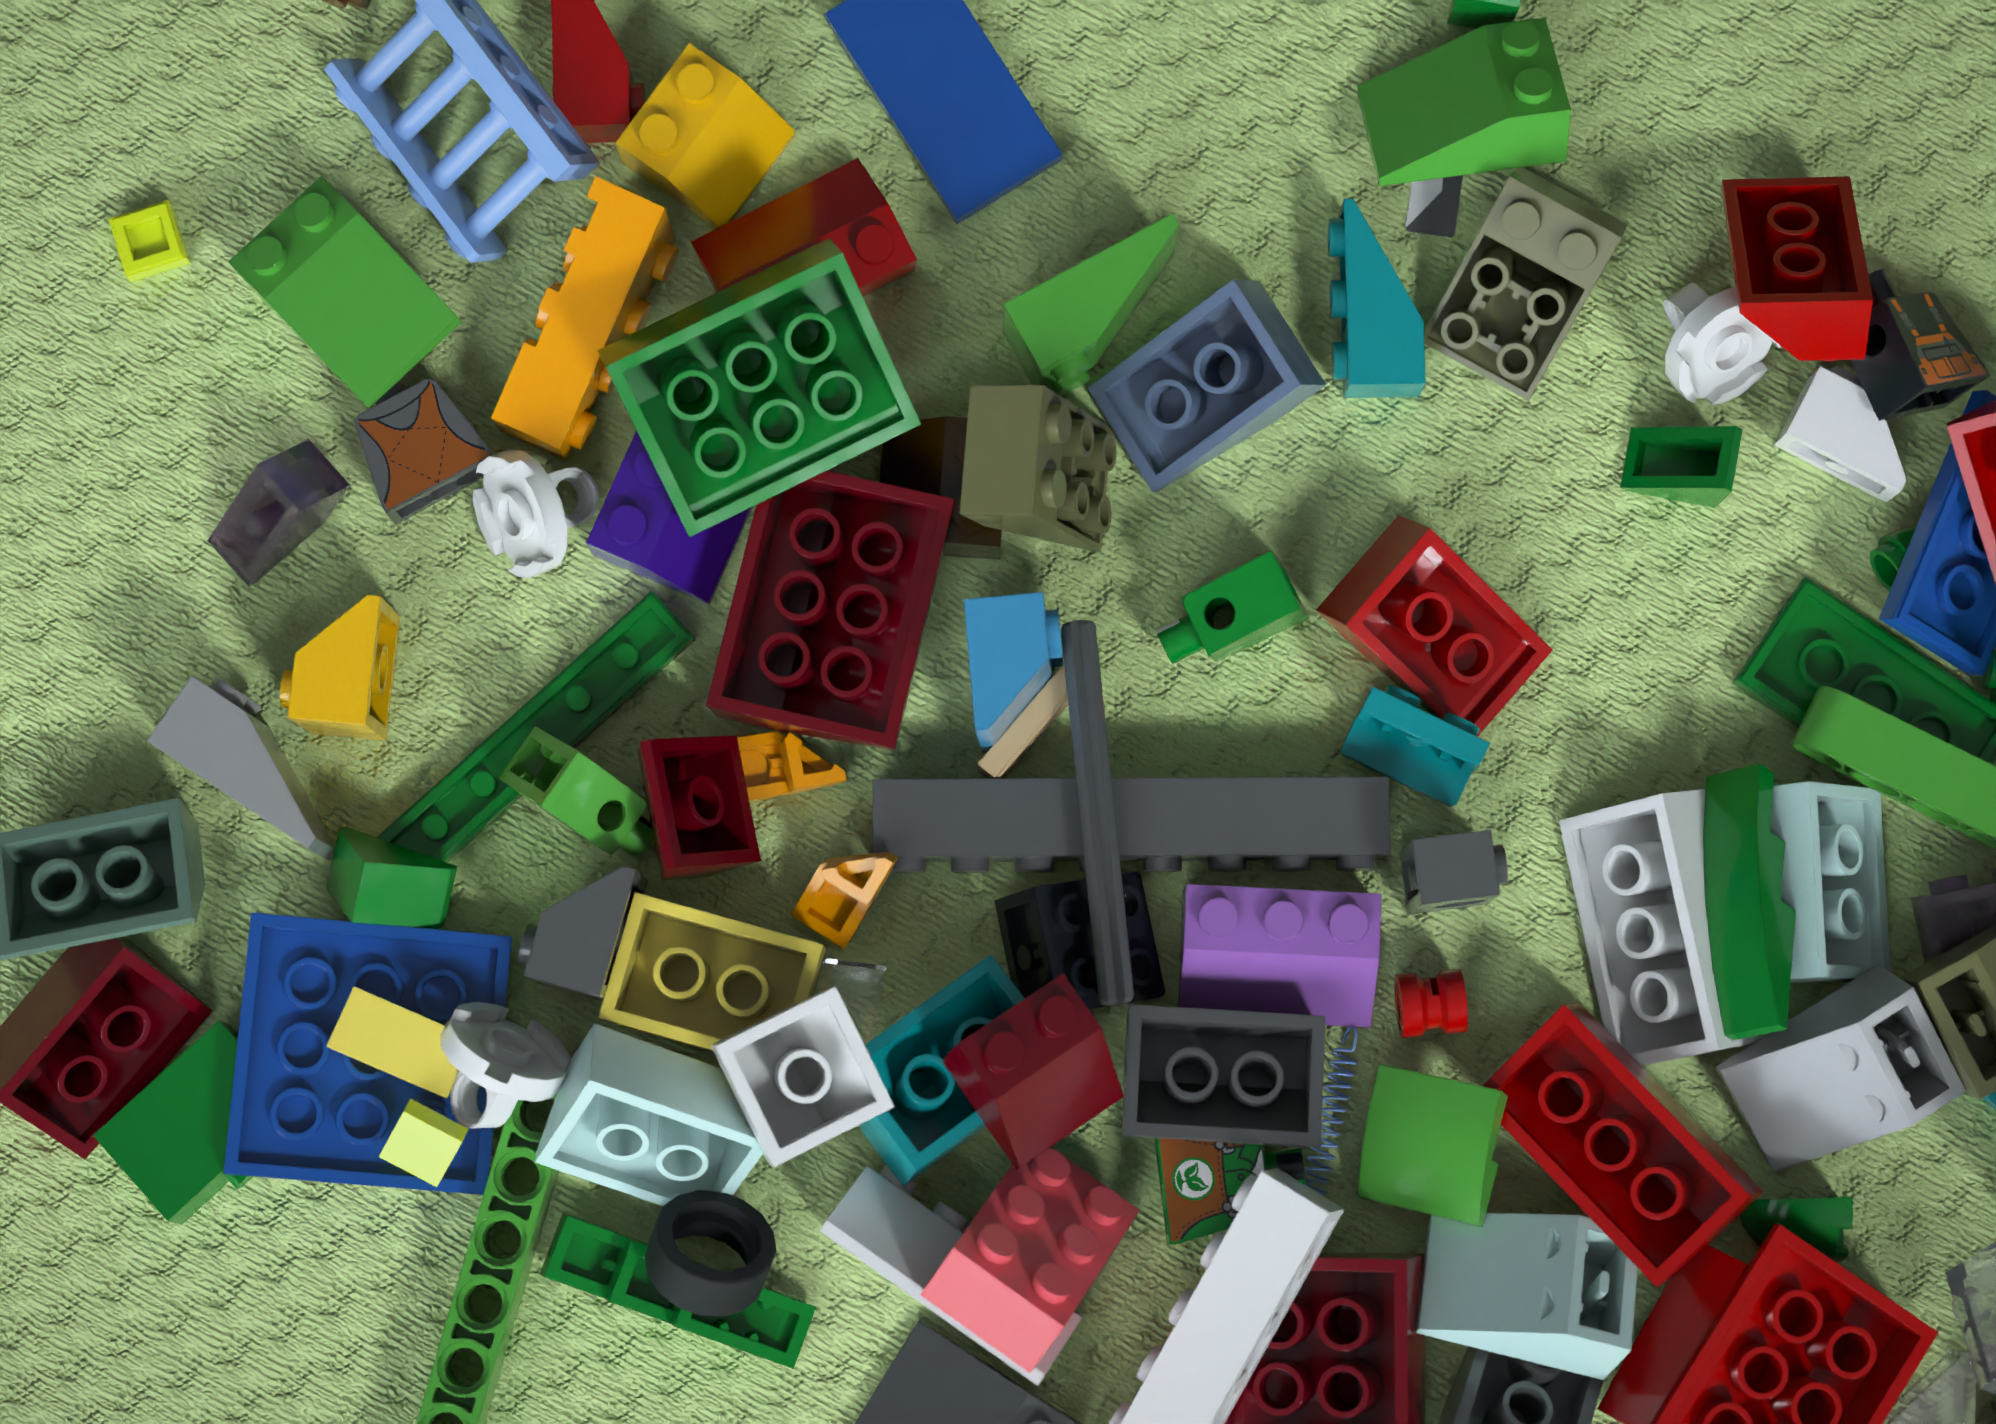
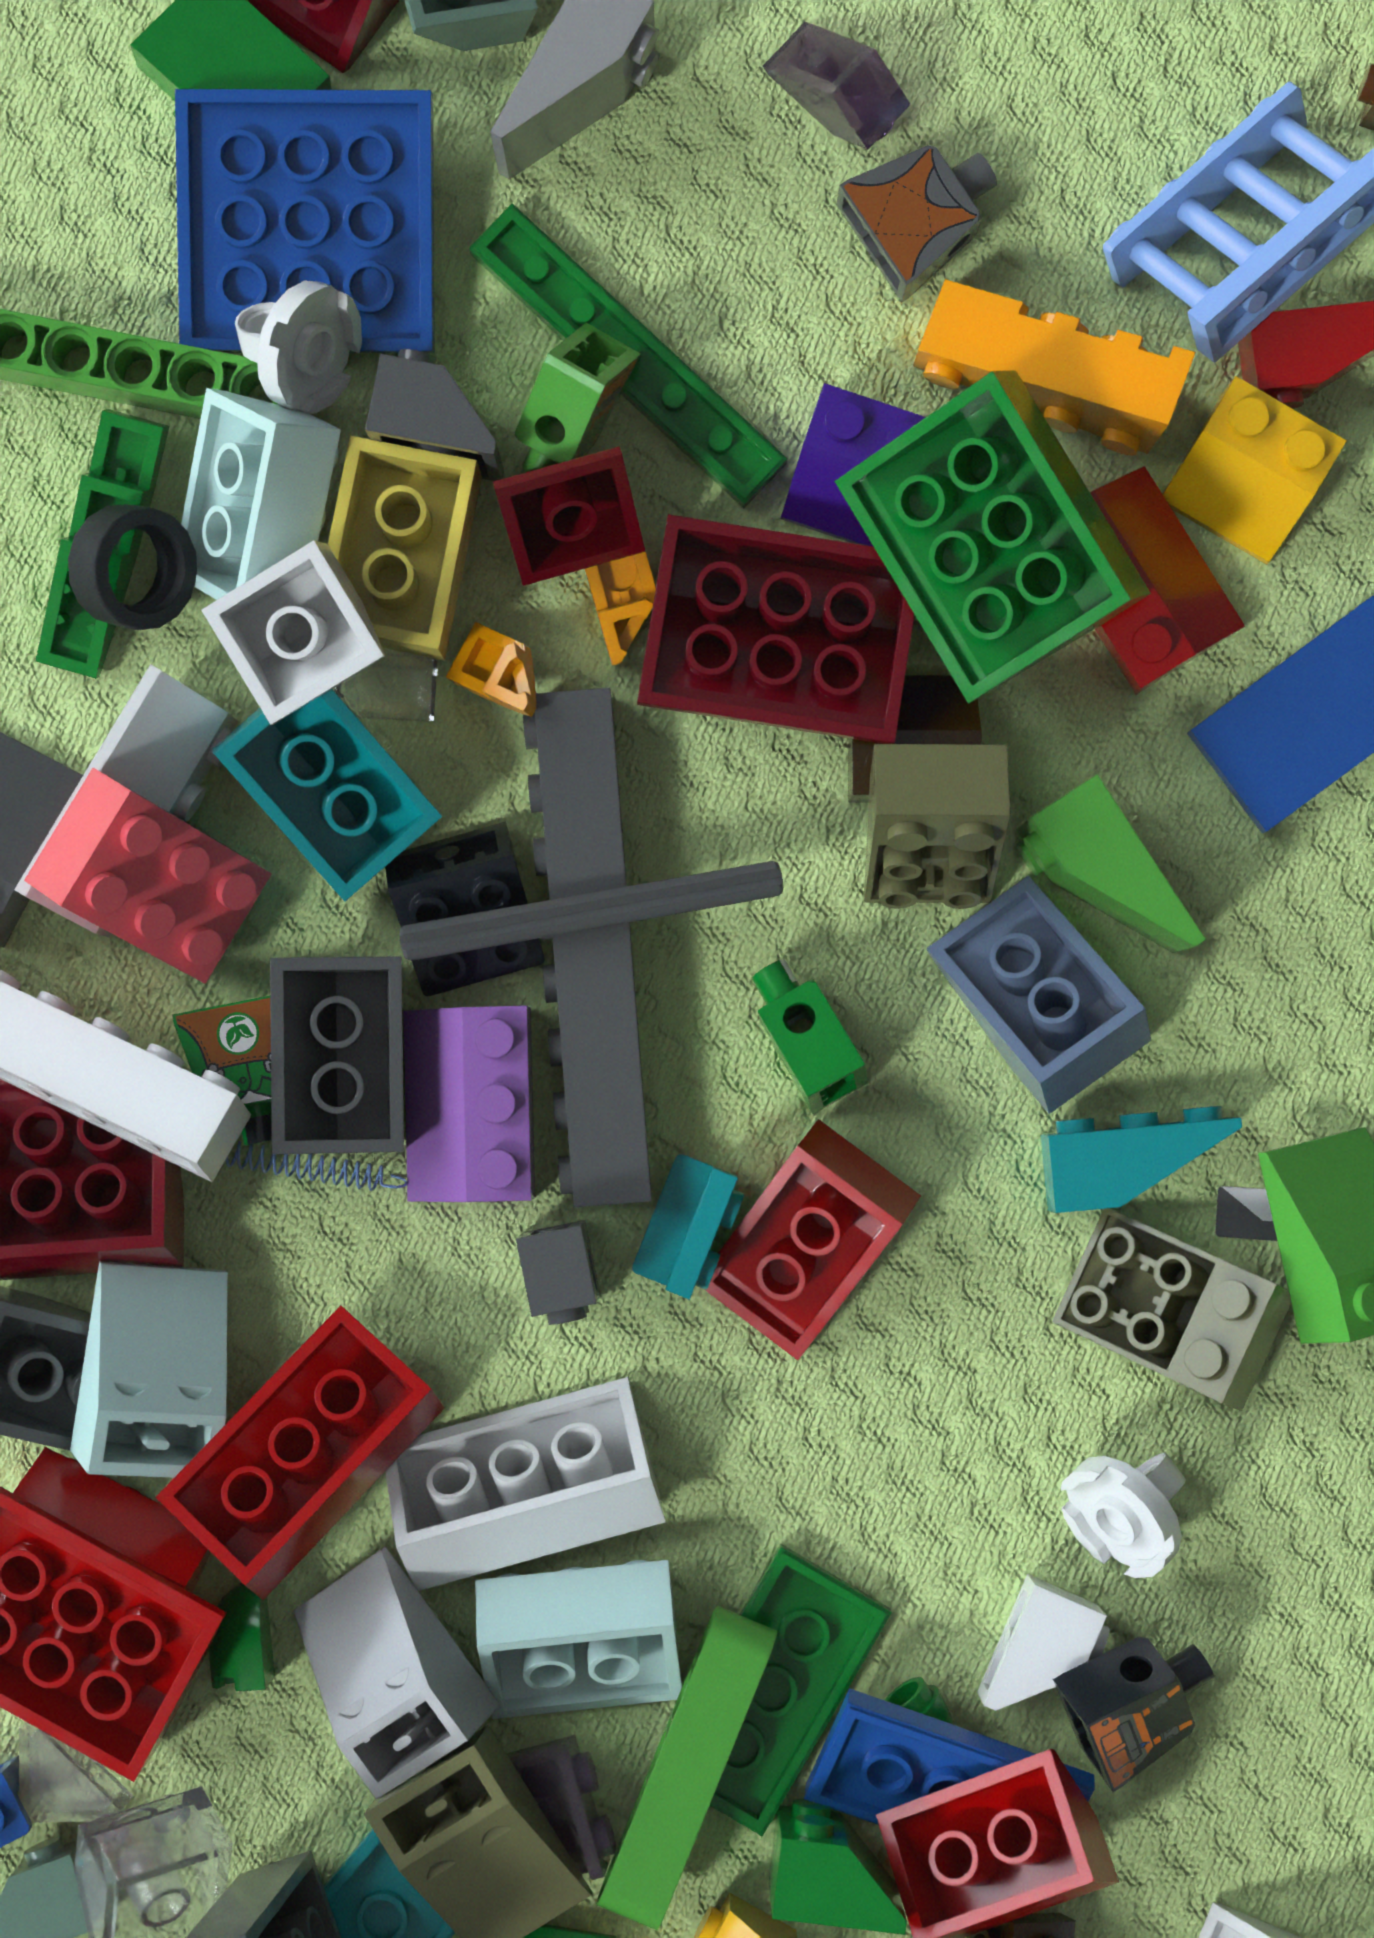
camera: 85 degrees right, 5 degrees up
(344, 292) = (1061, 122): bright green slope -> none
(346, 674) = (675, 162): yellow slope -> none
(388, 882) = (474, 226): green slope -> none
(393, 1042) = (317, 236): light yellow tile -> none
(423, 1142) = (218, 278): neon yellow tile -> none
(524, 513) = (853, 322): white tile -> none
(1010, 658) = (729, 806): dark azure slope -> none
(1026, 729) = (672, 836): tan tile -> none
(1037, 1071) = (321, 867): dark red slope -> none
(1430, 1145) = (289, 1266): bright green slope -> none
(1431, 1003) = (432, 1259): red wheel -> none
(1682, 463) = (998, 1480): green slope -> none
(1744, 909) = (542, 1565): green slope -> none
(1800, 264) = (1209, 1588): red slope -> none

